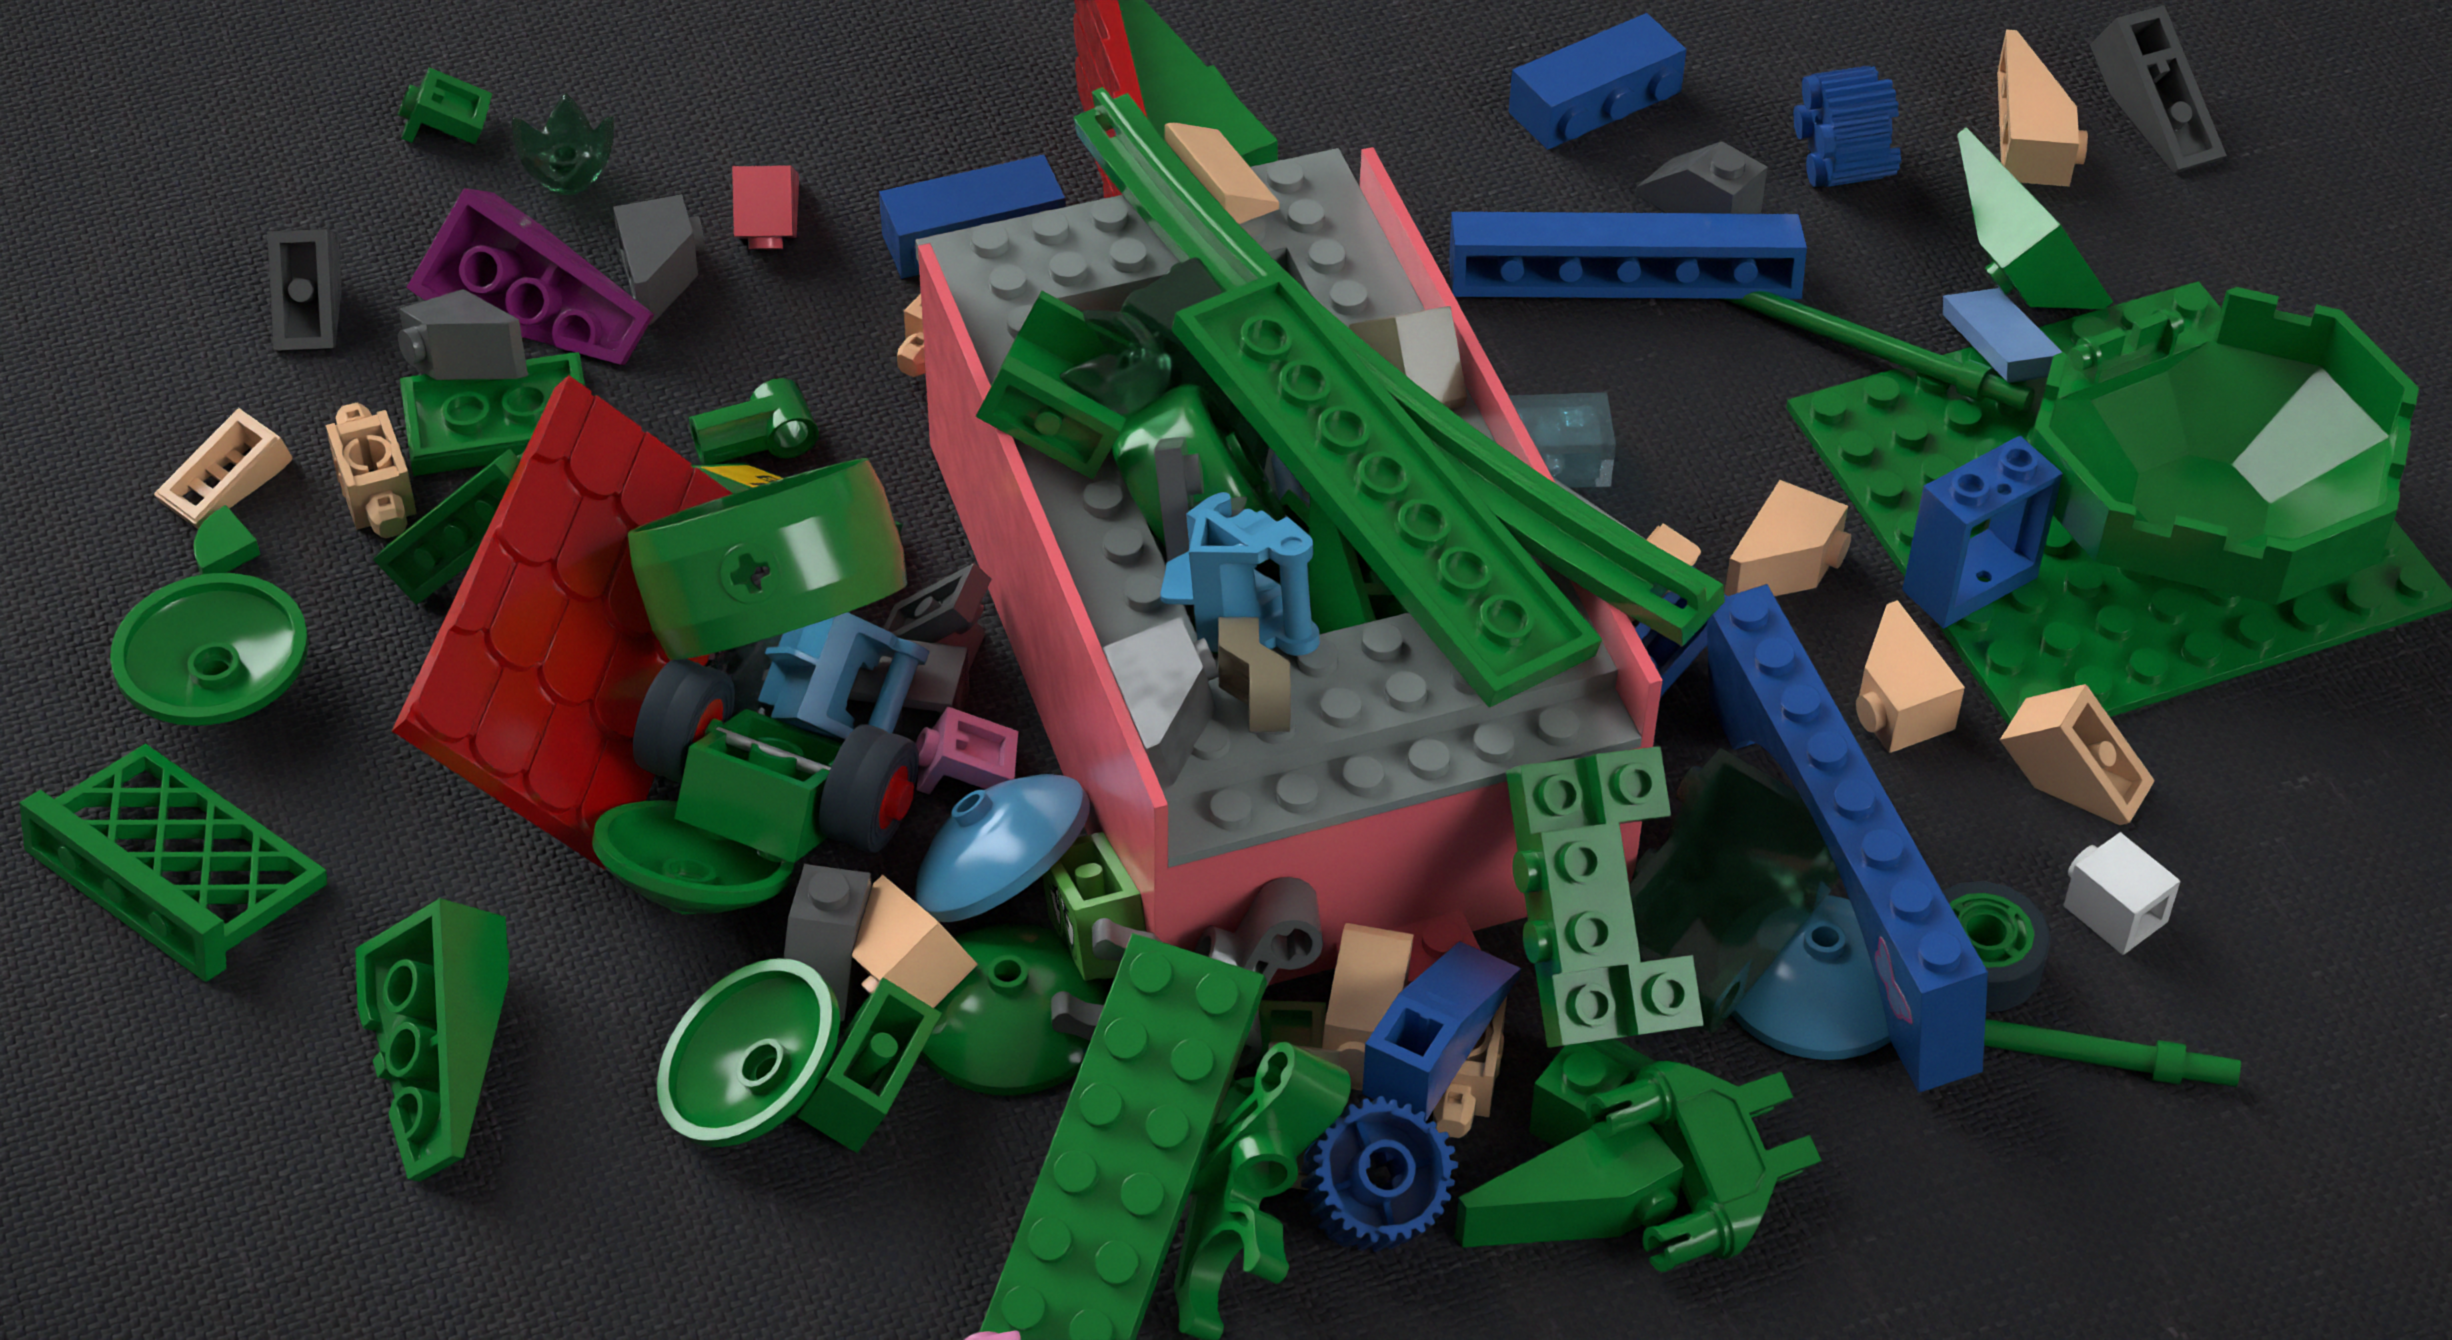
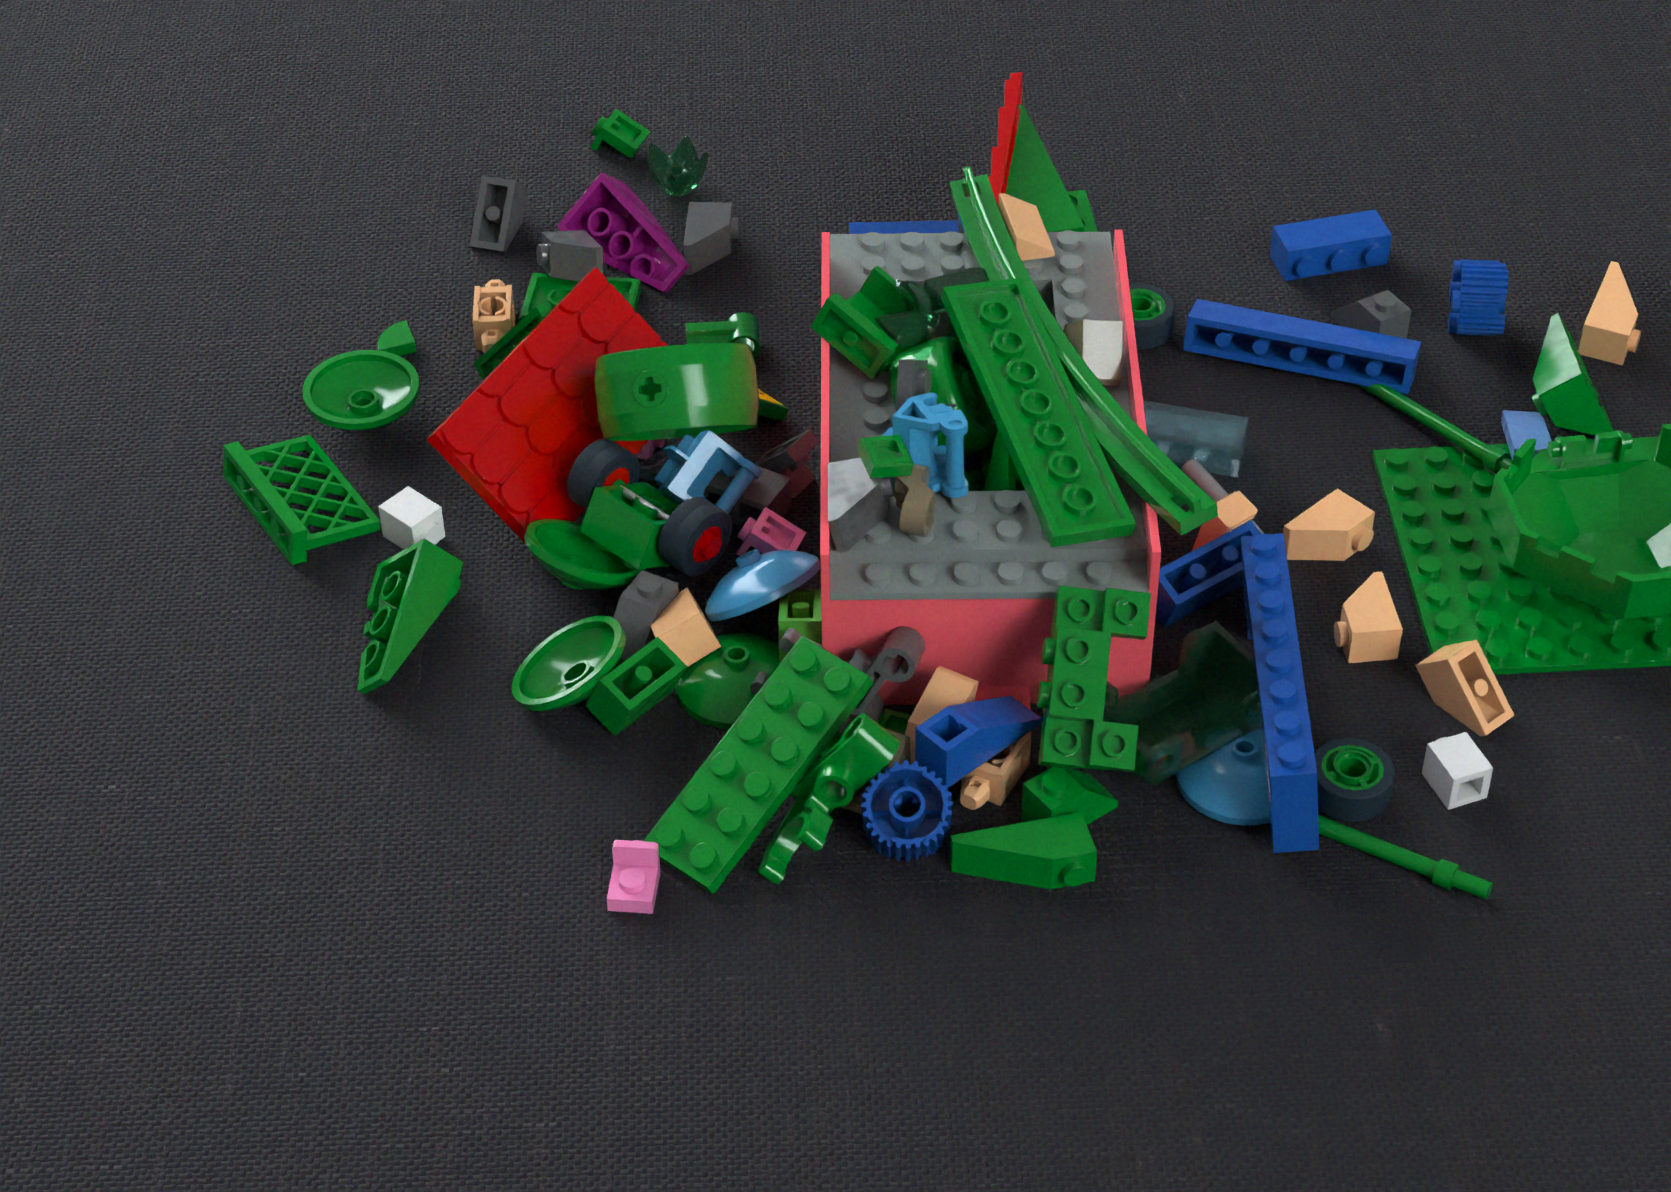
camera: 20 degrees right, 5 degrees down
(225, 445) = (423, 296): light nougat slope -> none
(383, 861) = (411, 518): none -> white brick
(765, 205) = (782, 218): coral slope -> none
(1196, 620) = (885, 456): none -> green tile
(1723, 1158) = (1122, 845): green connector -> none
(1944, 564) = (1468, 563): blue window -> none

